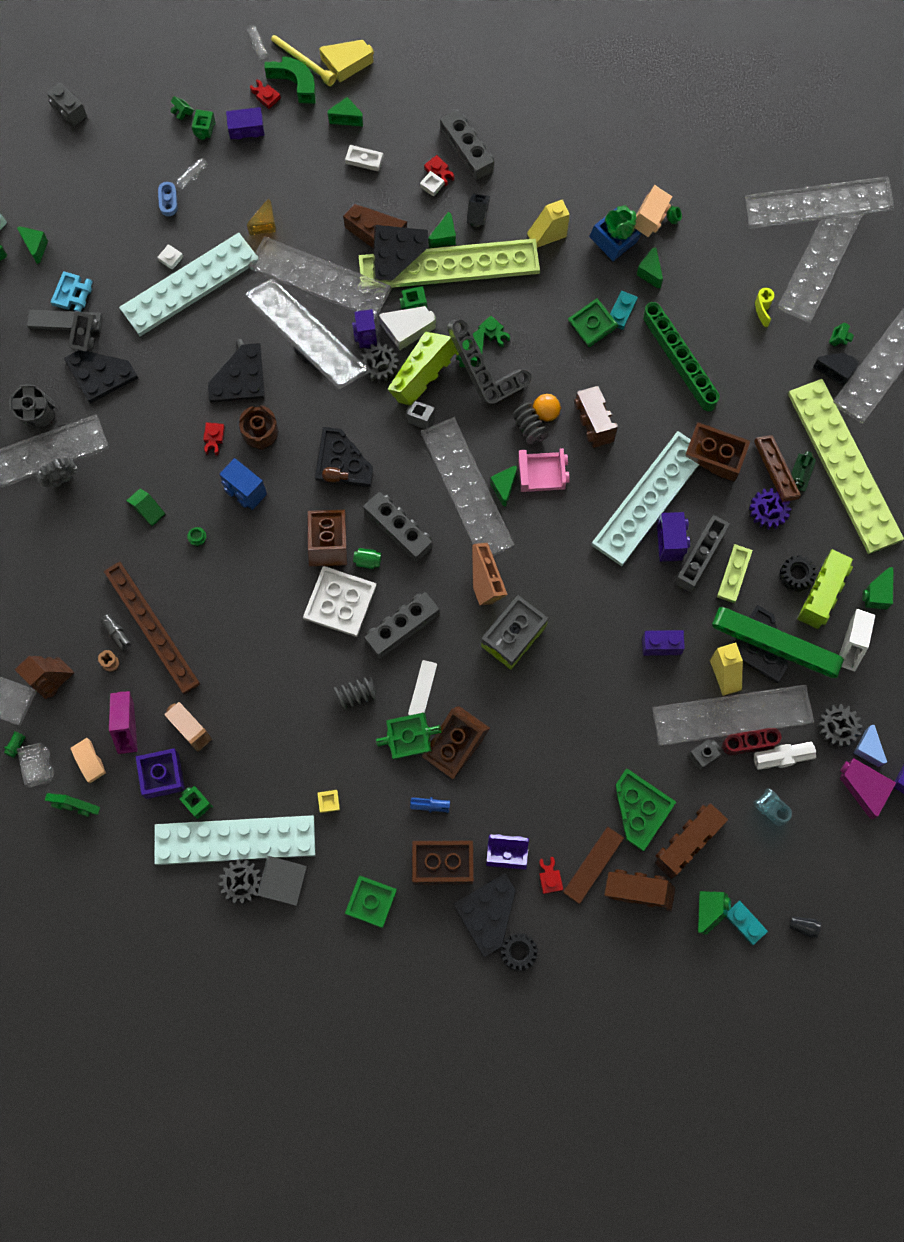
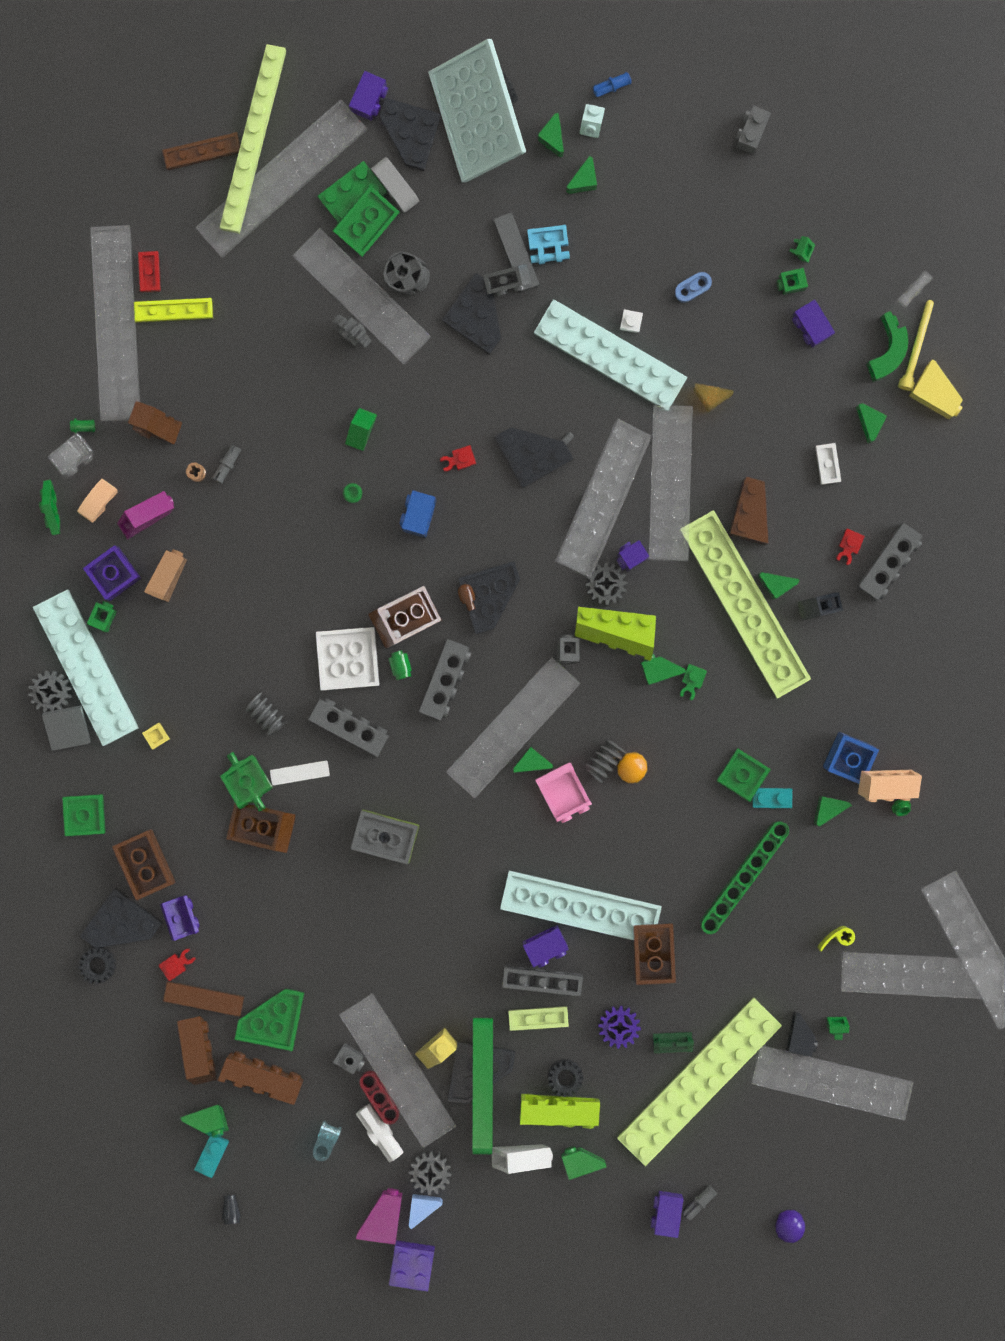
camera: 65 degrees right, 15 degrees up
(152, 628) = (245, 495): reddish brown plate -> none
(191, 173) = (733, 297): clear pin -> none
(258, 427) = (479, 490): reddish brown brick -> none
(266, 94) = (858, 327): red plate -> none
(396, 249) = (731, 547): black plate -> none
(407, 325) = (659, 594): white slope -> none
(413, 298) = (695, 590): green brick -> none
(430, 804) = (193, 829): blue axle -> none
(432, 183) = (829, 546): white plate -> none
(481, 367) = (635, 687): dark grey beam -> none
(486, 577) = (429, 786): nougat slope -> none
(550, 224) = (829, 688): light yellow slope -> none
(595, 416) = (641, 819): wedge -> none
(621, 222) = (855, 762): green hair -> none
(663, 642) = (438, 978): dark purple brick -> none
(777, 468) = (664, 1018): reddish brown tile -> none

